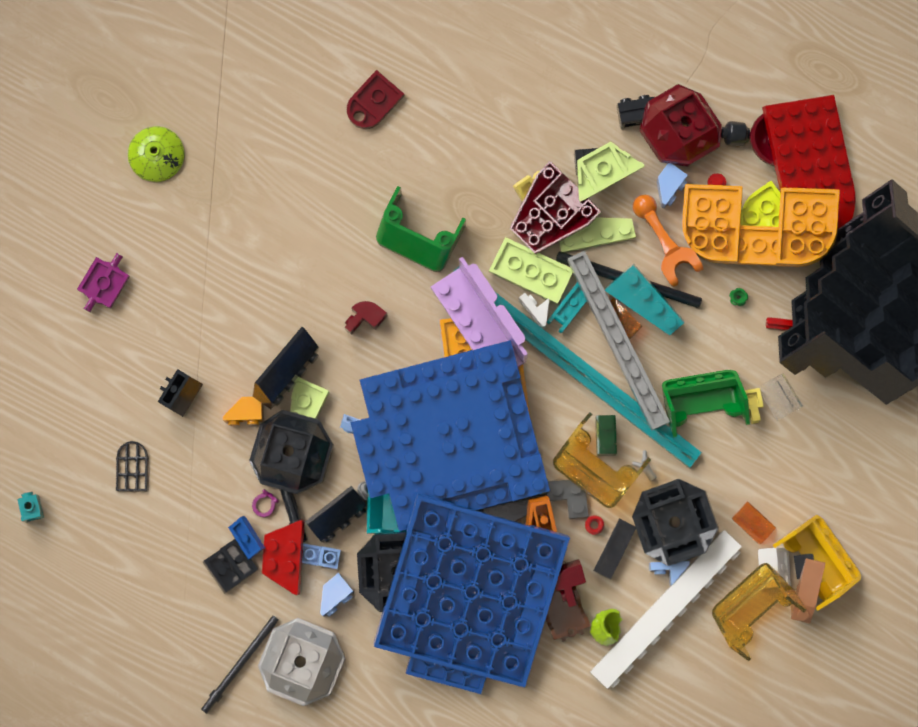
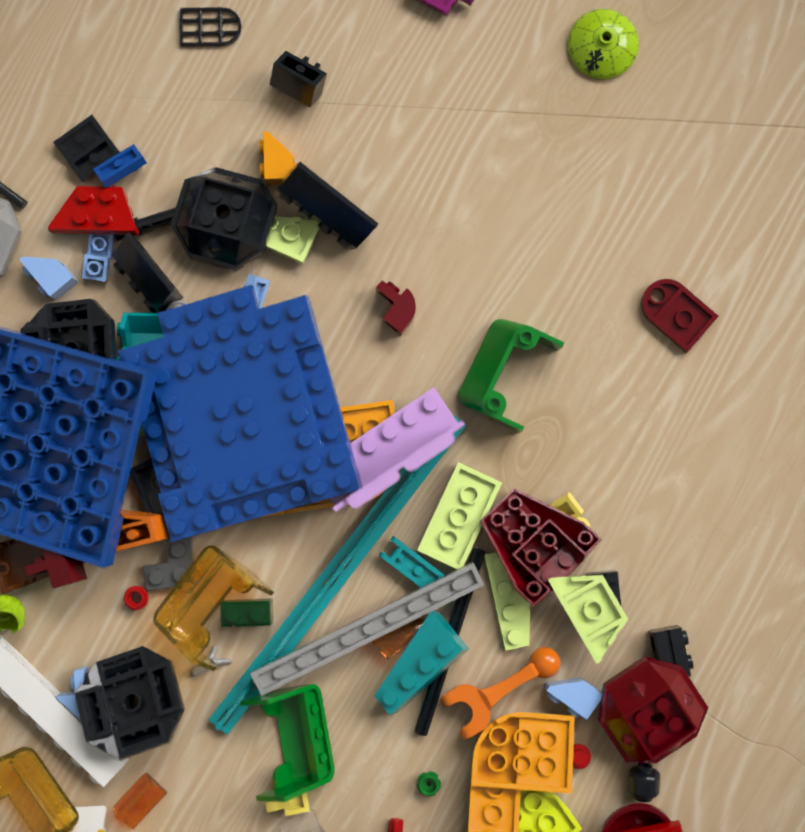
camera: 85 degrees right, 5 degrees up
(273, 500) = (166, 199): magenta piece -> none
(538, 313) = (403, 528): white slope -> none
(614, 549) = (105, 623): black plate -> none

